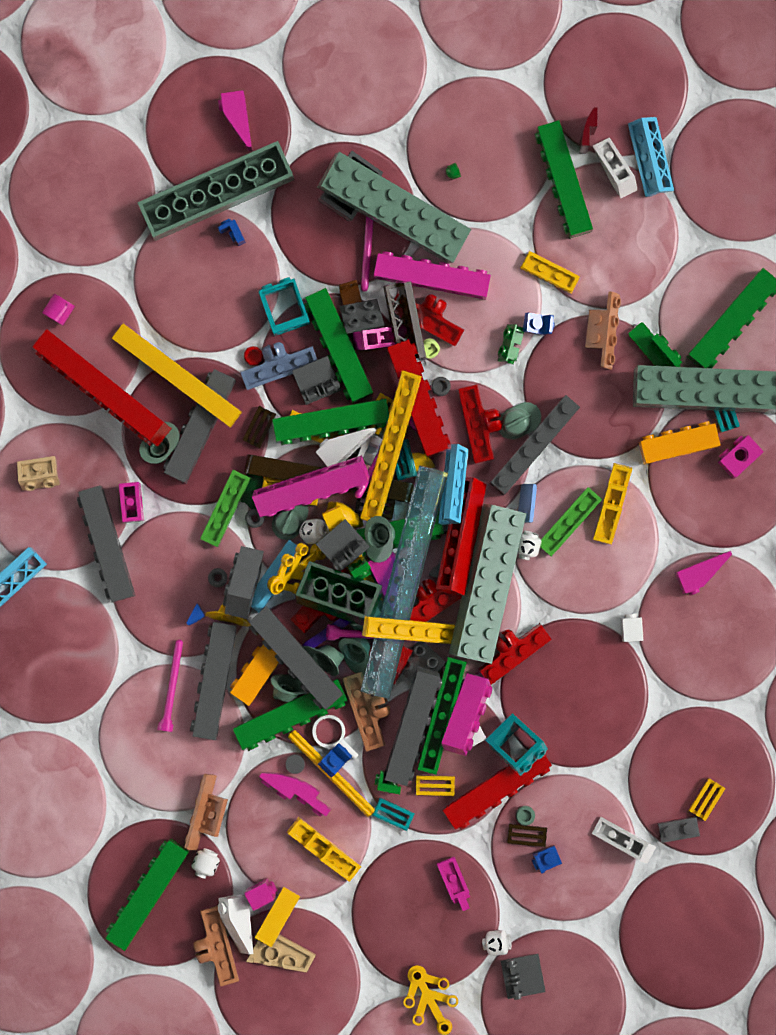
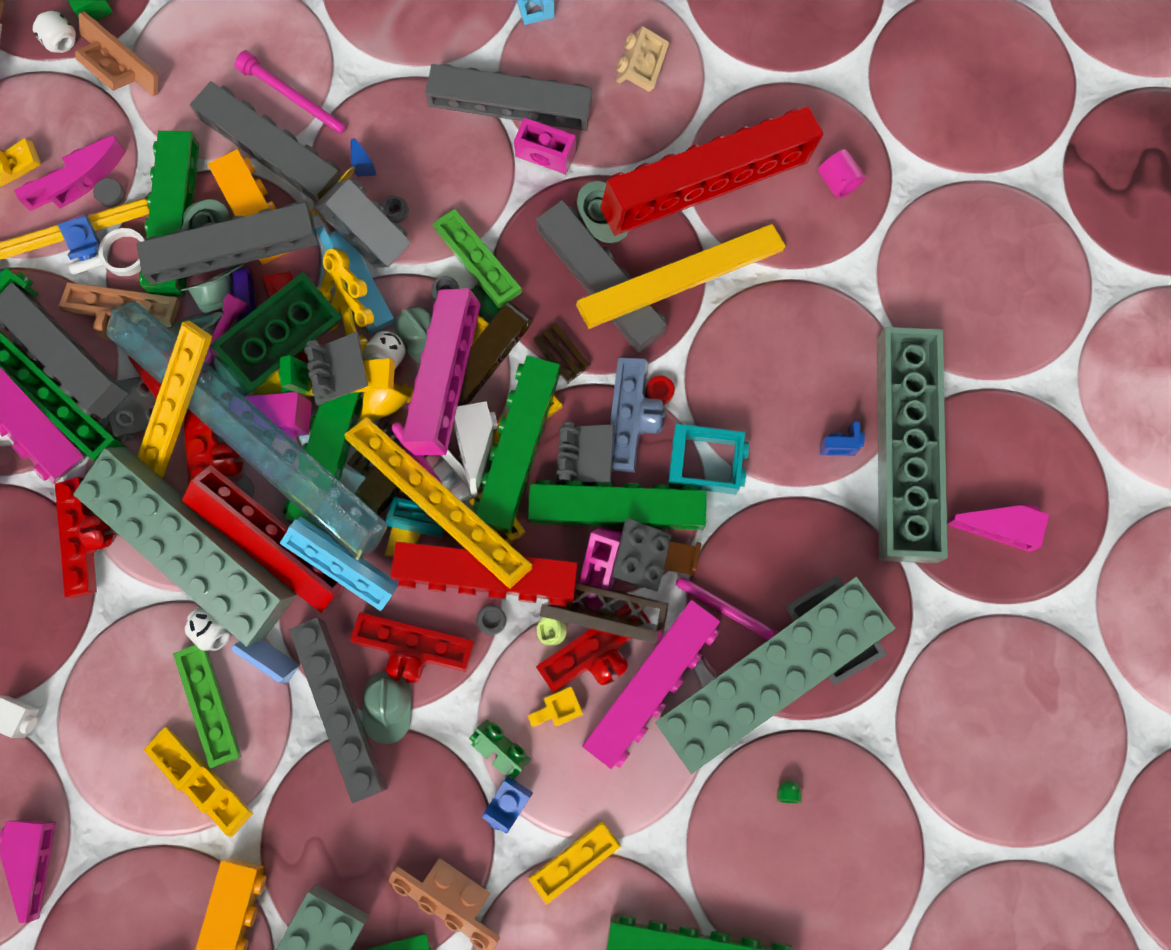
camera: 115 degrees right, 10 degrees down
(380, 538) = (321, 424): sand green piece -> none
(471, 321) = (559, 707): none -> yellow plate

